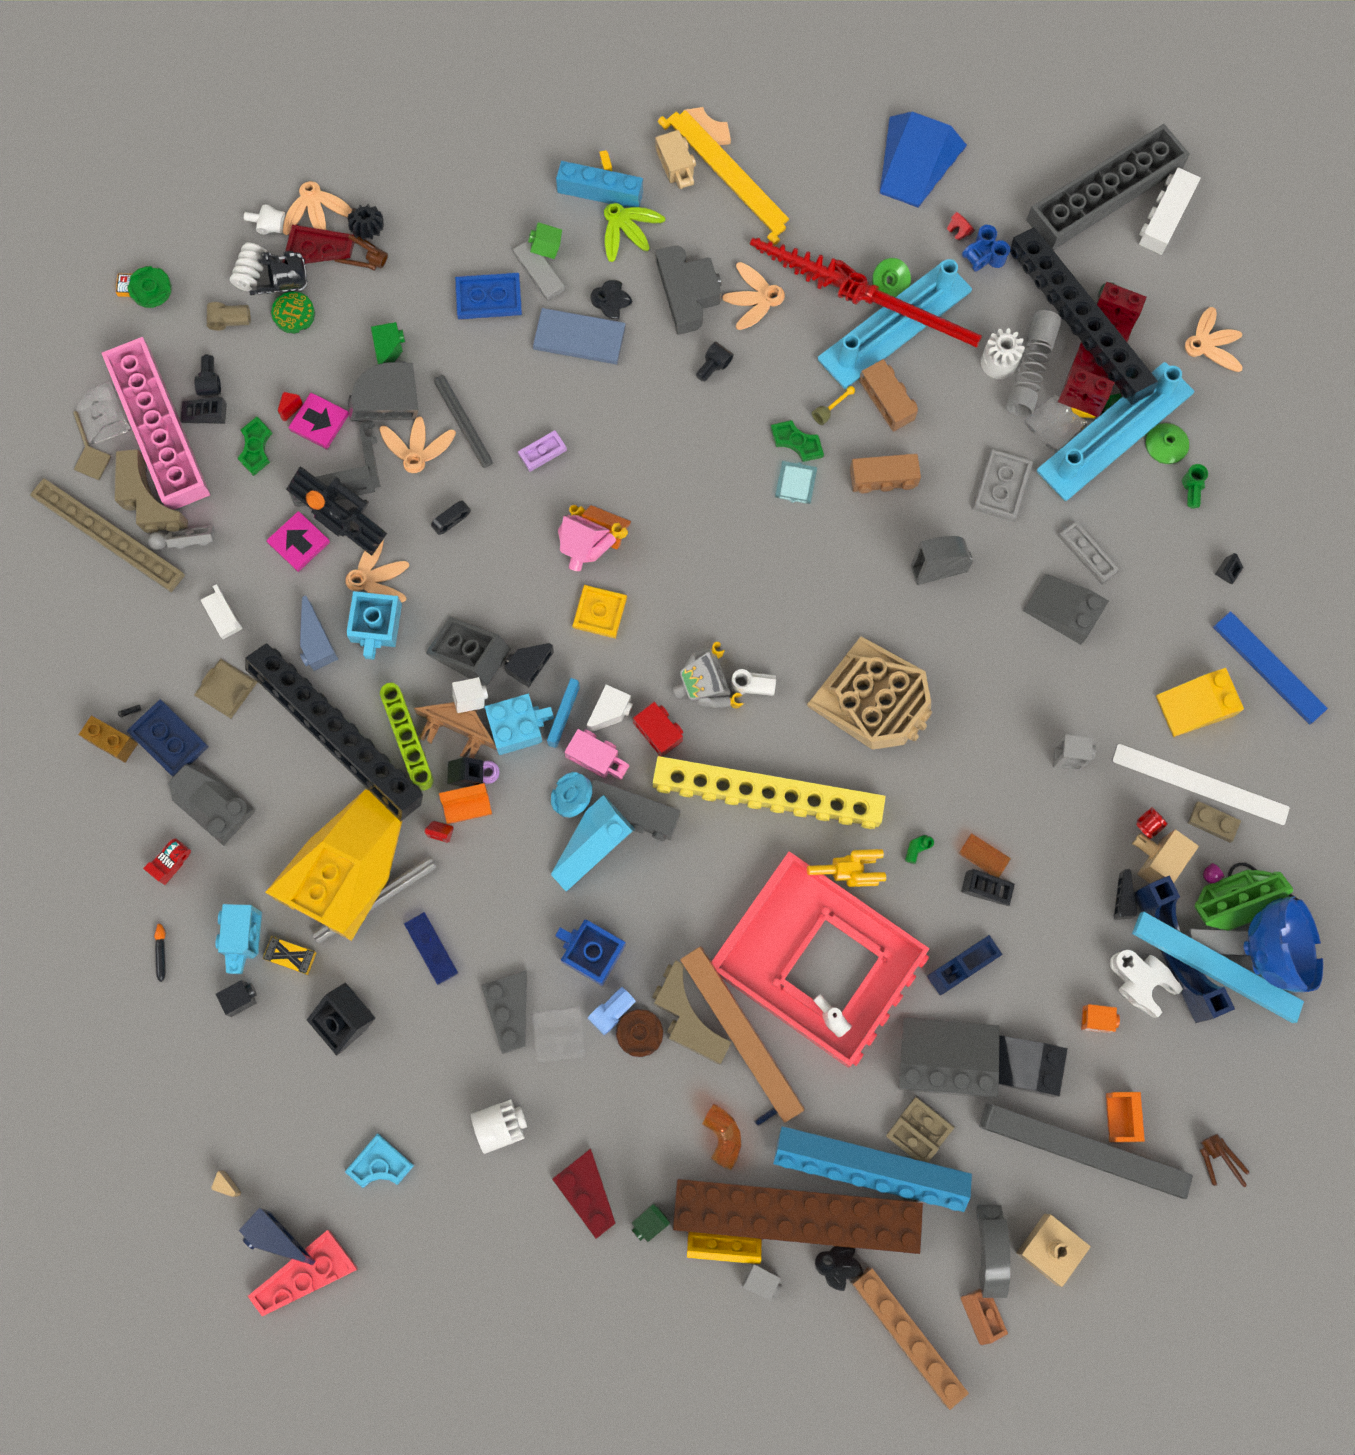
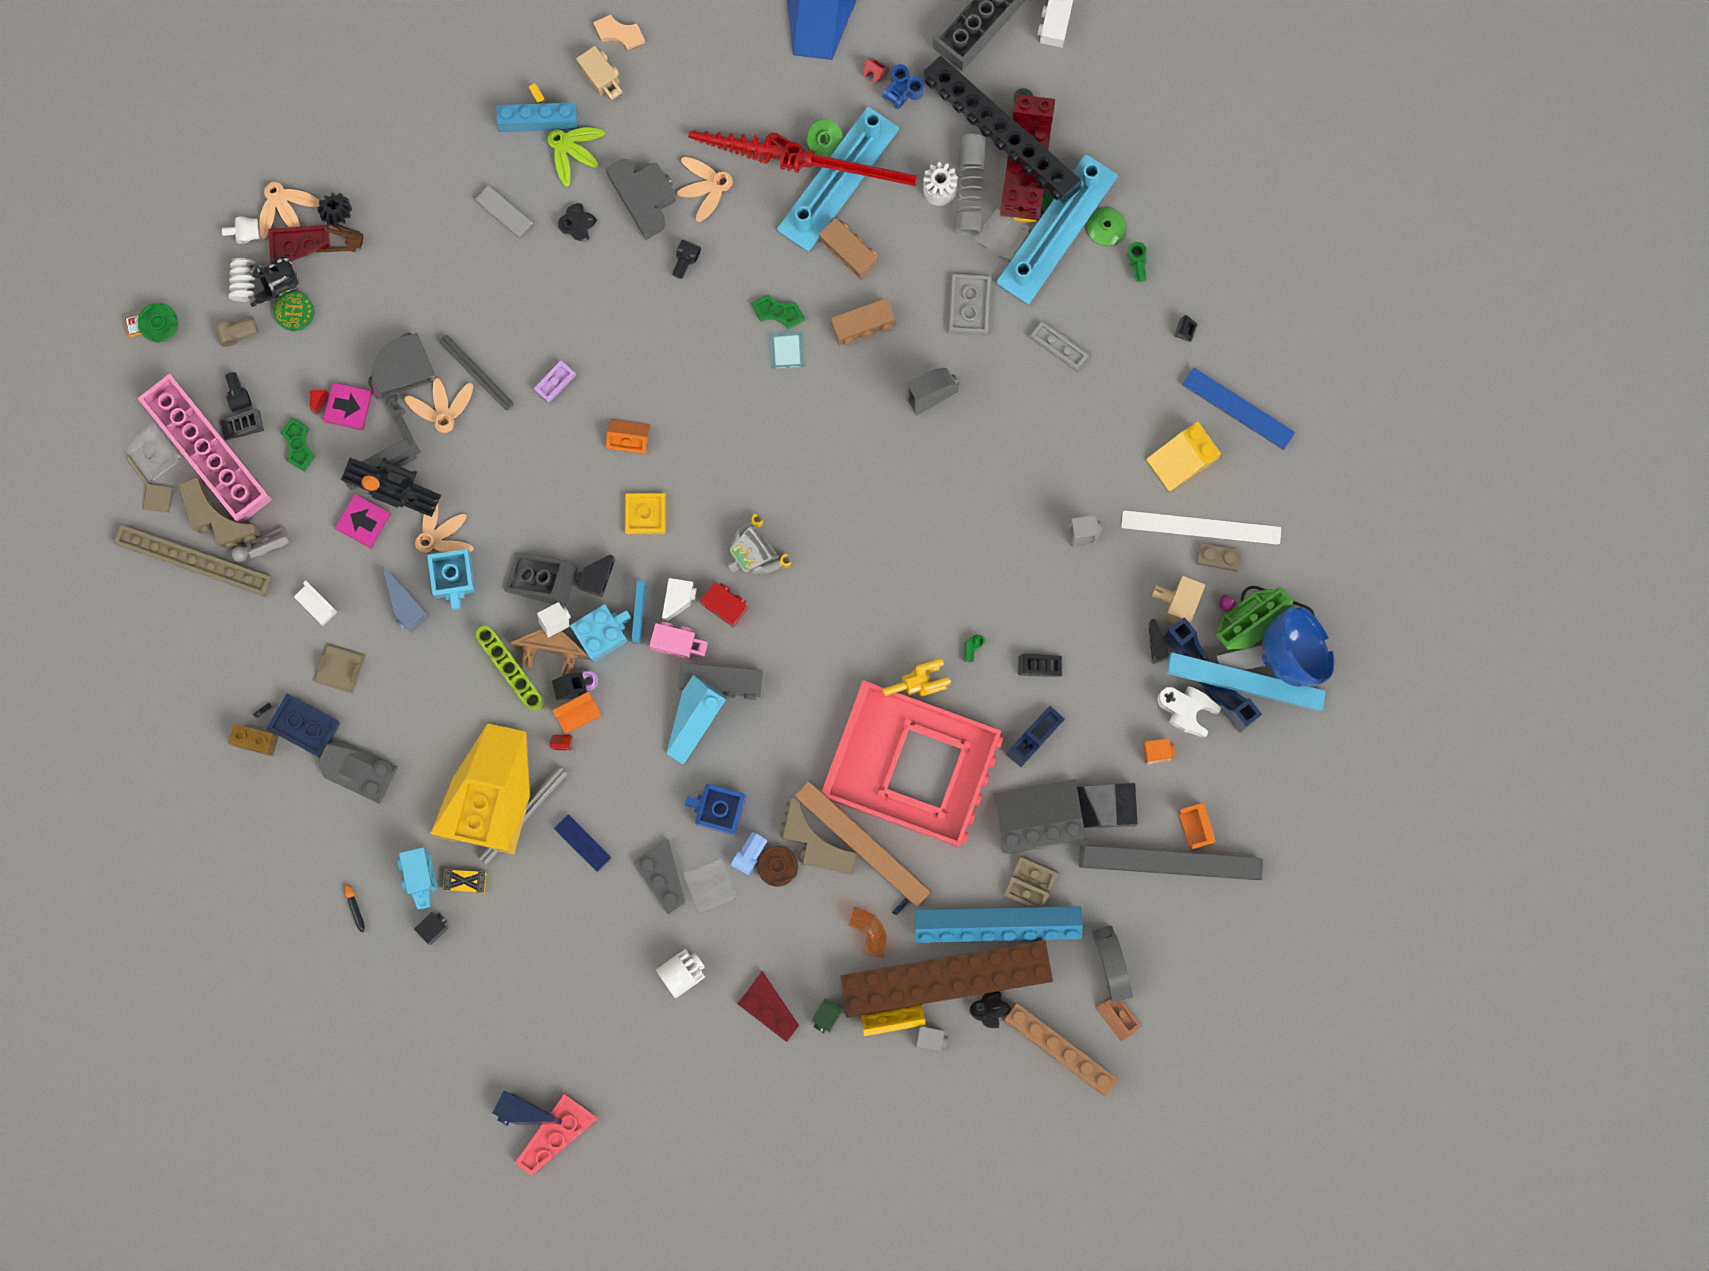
camera: 10 degrees left, 5 degrees up
(168, 861) = (337, 829): red leg -> none
(225, 1185) = (468, 1081): tan slope -> none
(340, 1018) = (524, 921): black slope -> none
(378, 1162) = (590, 1029): medium azure tile -> none
(387, 342) = (388, 319): green slope -> none
(399, 804) = (380, 652): black brick -> none
(450, 517) = (491, 464): black beam -> none
(488, 296) = (466, 249): blue plate -> none
(545, 240) = (503, 184): bright green brick -> none
(571, 794) = (665, 681): medium azure tile -> none
(579, 336) = (558, 265): sand blue tile -> none
(585, 539) = (615, 454): bright pink torso -> none
(729, 172) = (651, 72): yellow piece -> none
(755, 683) = (798, 542): white piece -> none
(823, 414) = (794, 281): olive hinge -> none
(833, 1017) = (937, 814): white piece -> none
(872, 803) = (924, 620): light yellow brick -> none
(897, 721) = (926, 544): tan hinge -> none
(984, 856) = (1030, 639): clear orange tile -> none
(1053, 1250) = (1161, 949): tan brick -> none
(1066, 607) = (1049, 402): dark grey slope -> none
(1151, 823) = (1164, 574): red piece -> none
(1208, 342) = (1122, 121): light nougat plant -> none
(1217, 1147) = (1277, 831): reddish brown plant -> none

